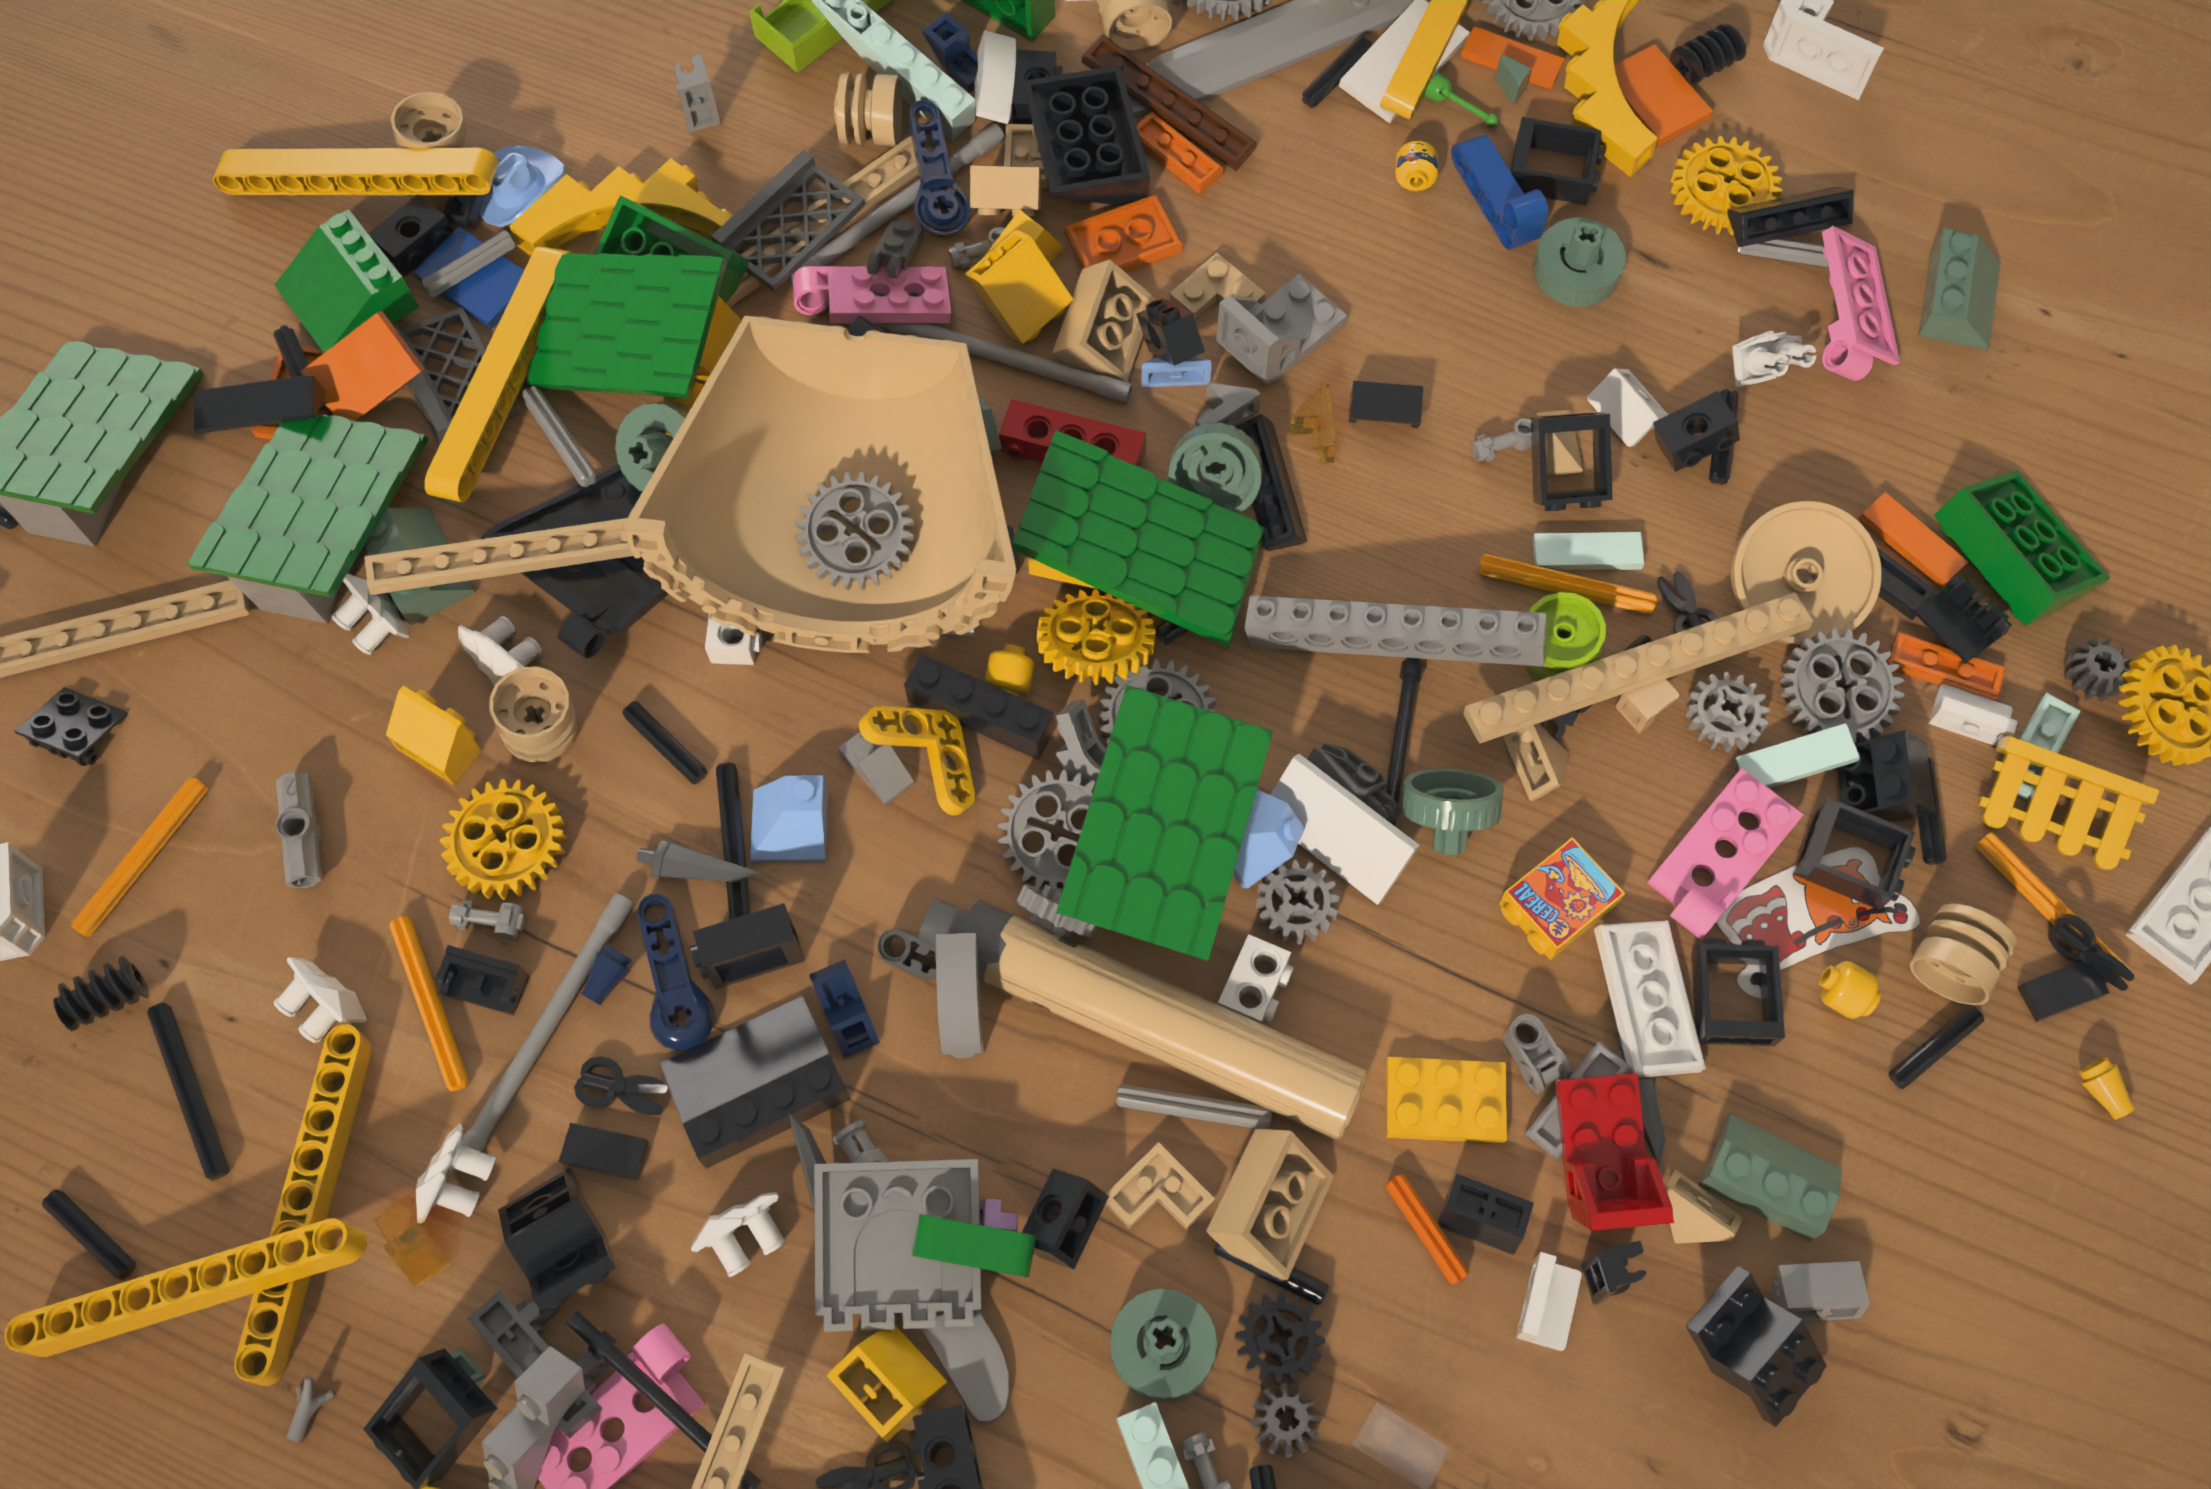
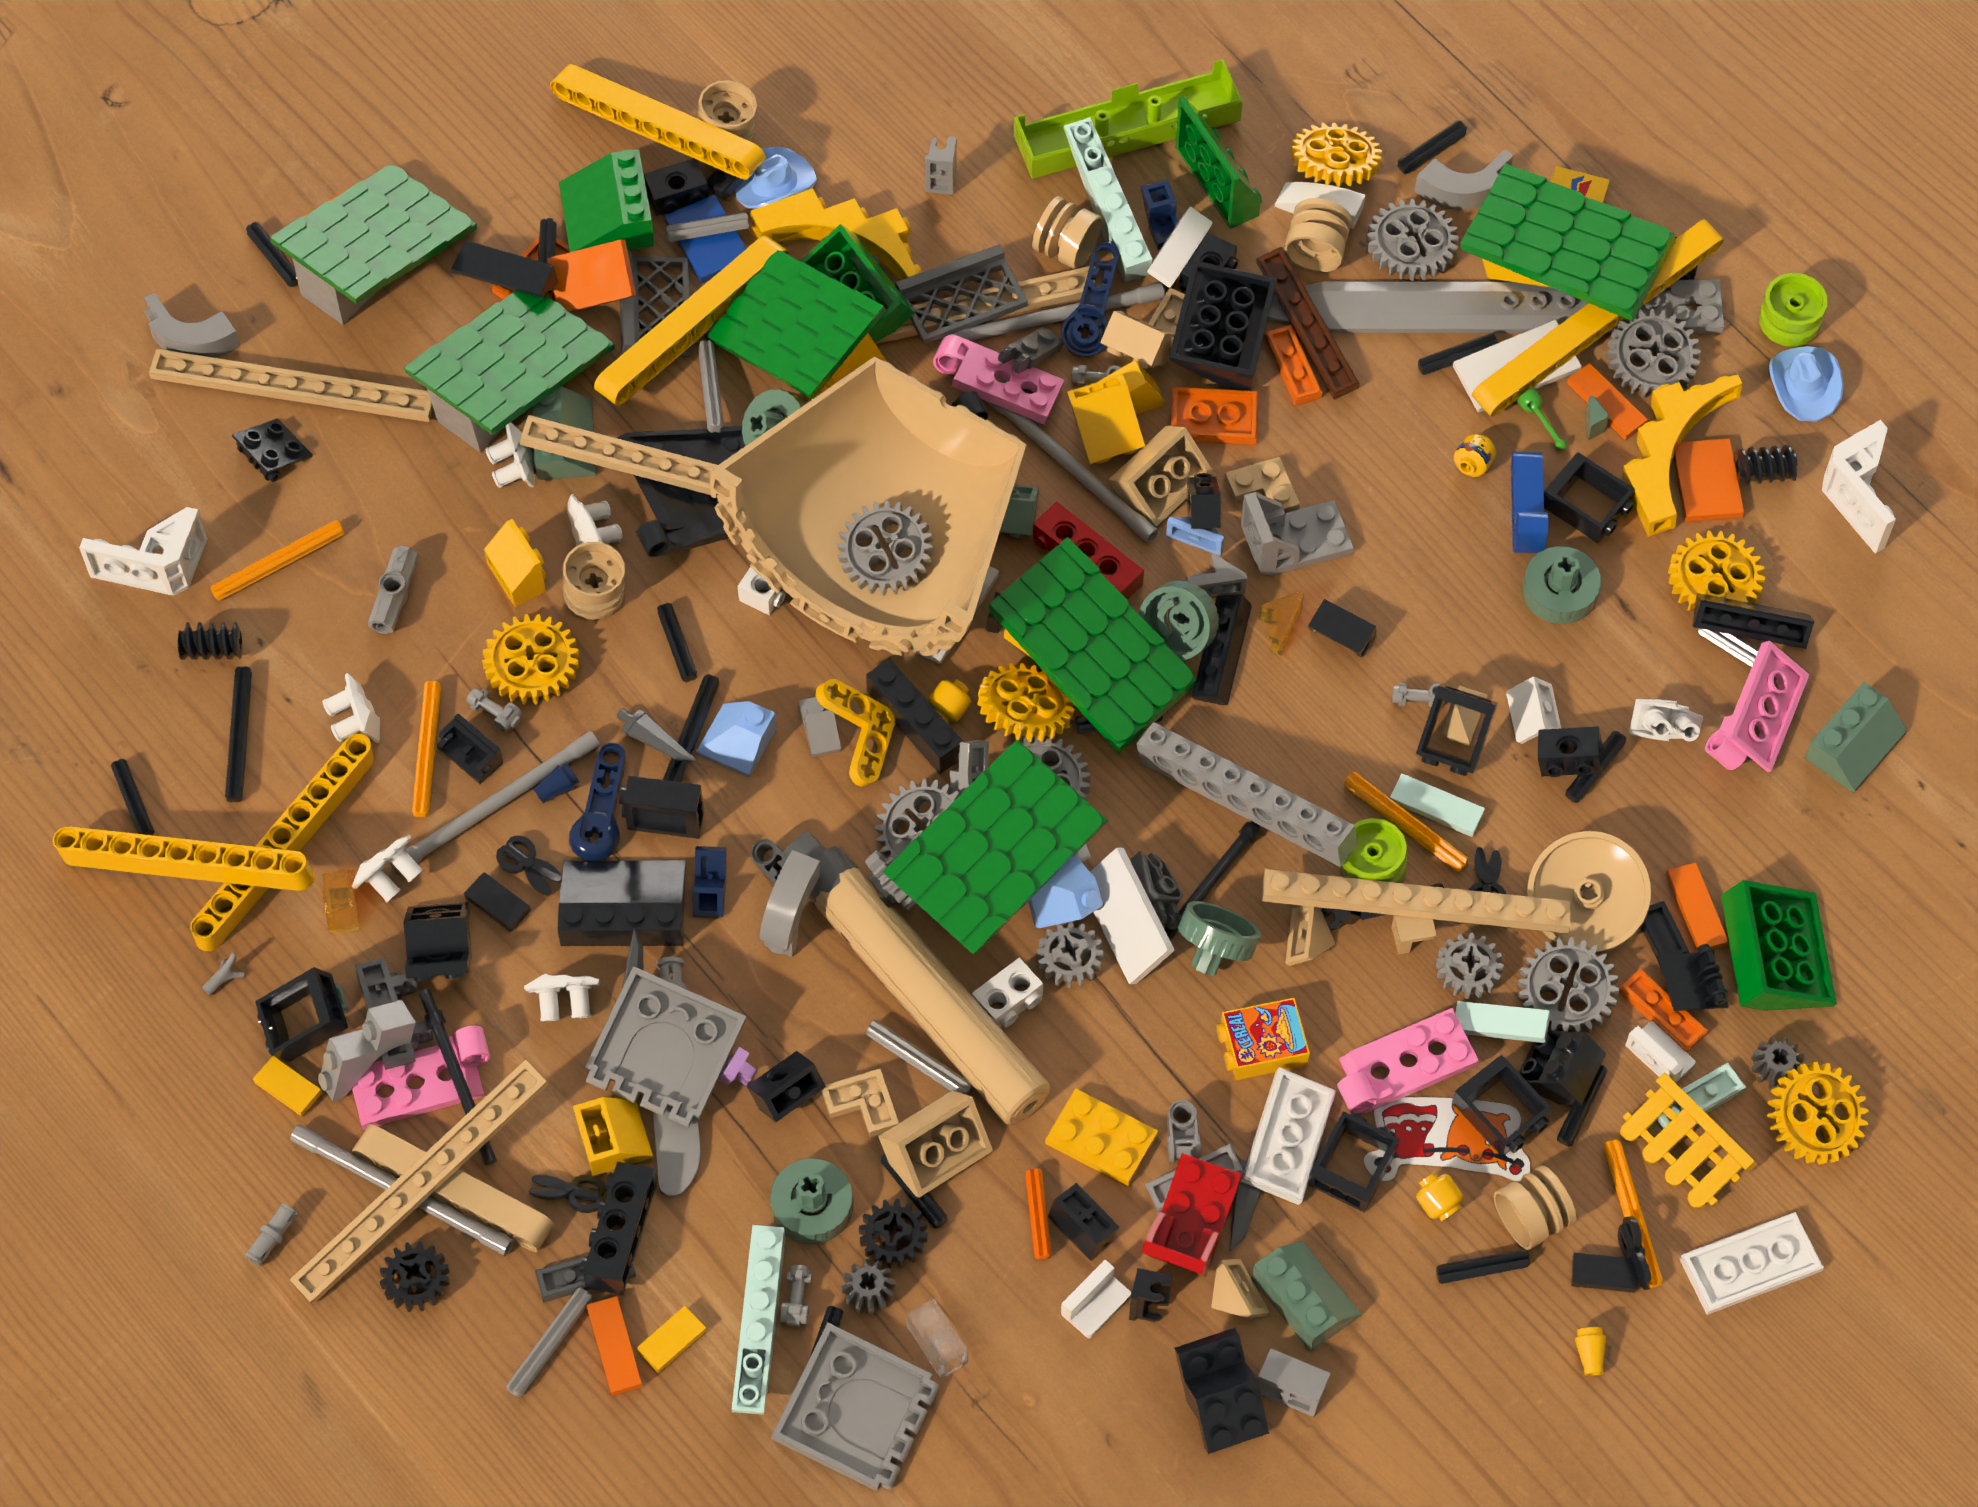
camera: 25 degrees right, 5 degrees down
(974, 1245) = (714, 1069): green beam -> none

